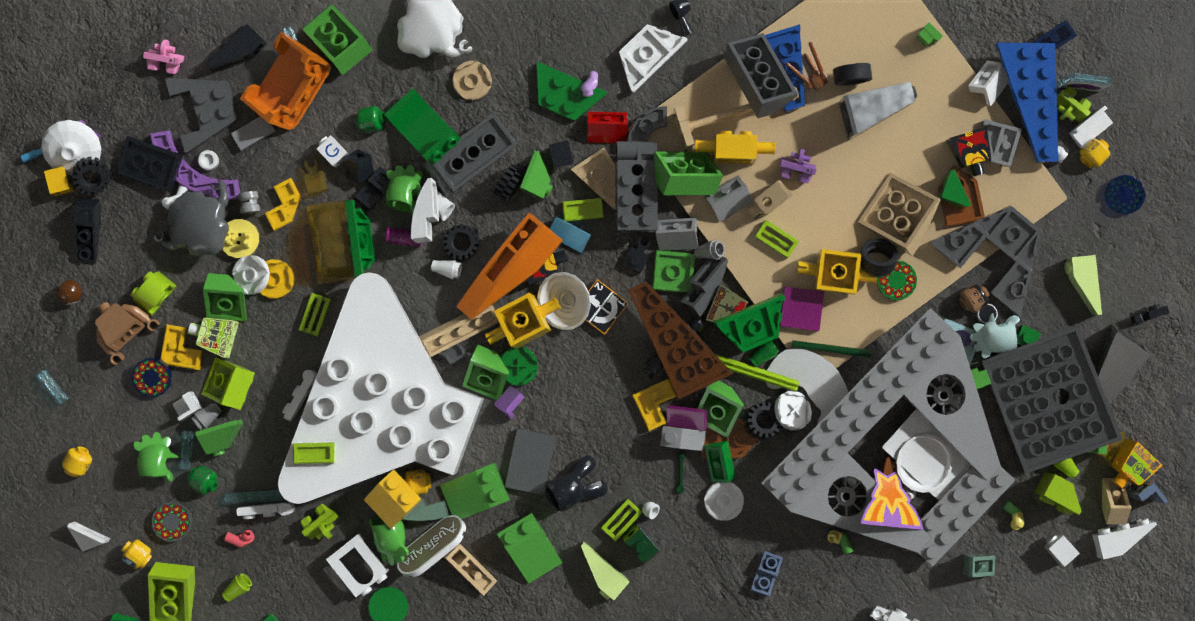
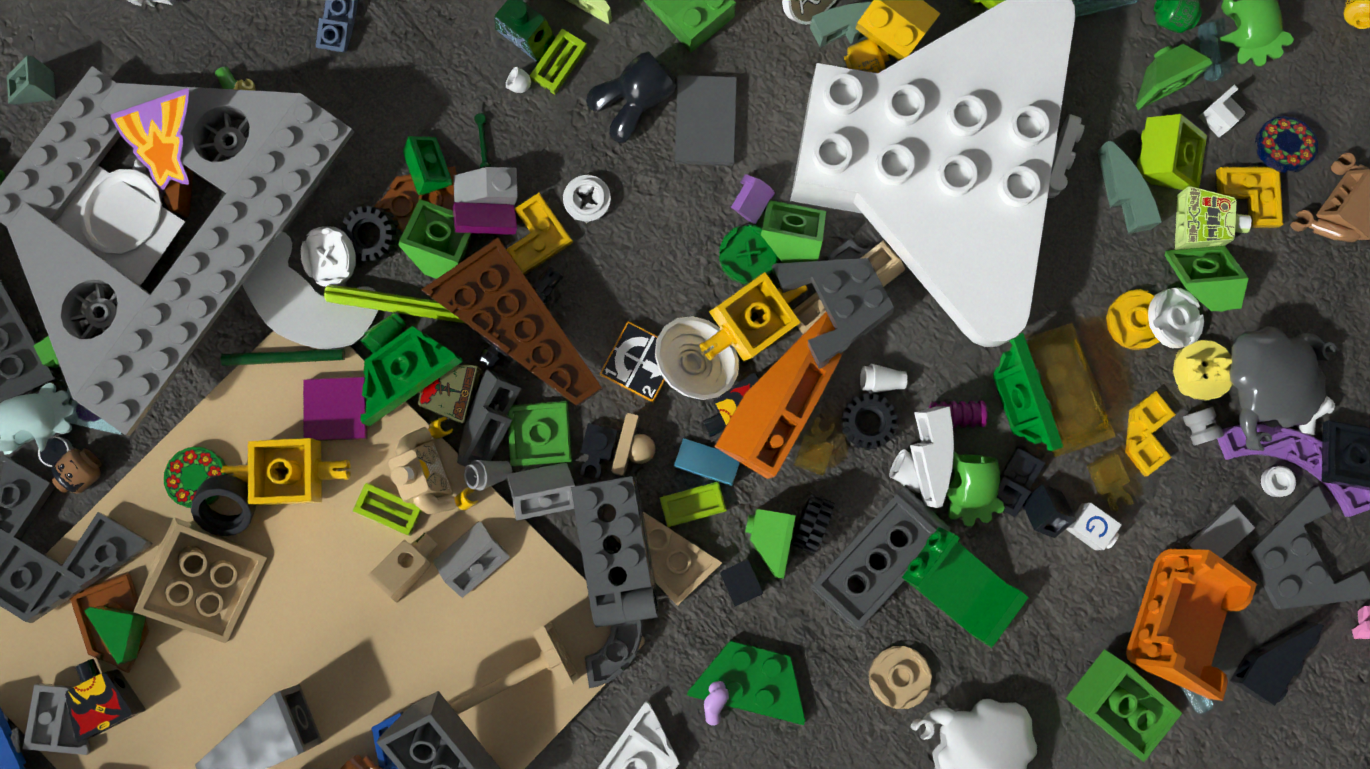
camera: 175 degrees right, 5 degrees down
(152, 292) = (1314, 269): lime cylinder -> none
(206, 416) = (1195, 100): light grey cone -> none
(262, 365) = (1127, 188): none -> sand green slope
(313, 453) = (1031, 58): lime tile -> none
(314, 315) = (1069, 253): lime tile -> none
(370, 119) = (1047, 586): green head -> none
(459, 322) = (849, 295): none -> dark grey wing
(475, 491) = (775, 63): bright green slope -> none
(498, 229) = (815, 451): none -> clear yellow plate
(607, 127) = (677, 639): red panel -> none
(612, 251) = (632, 446): none -> tan tile
(618, 431) = (584, 185): none -> white gear
(686, 173) = (540, 584): bright green slope -> none
(723, 501) = (413, 112): white tile -> none
(734, 147) = (470, 637): yellow brick -> none
(751, 257) = (421, 475): none -> tan torso
(806, 169) = (366, 630): medium lavender hips -> none

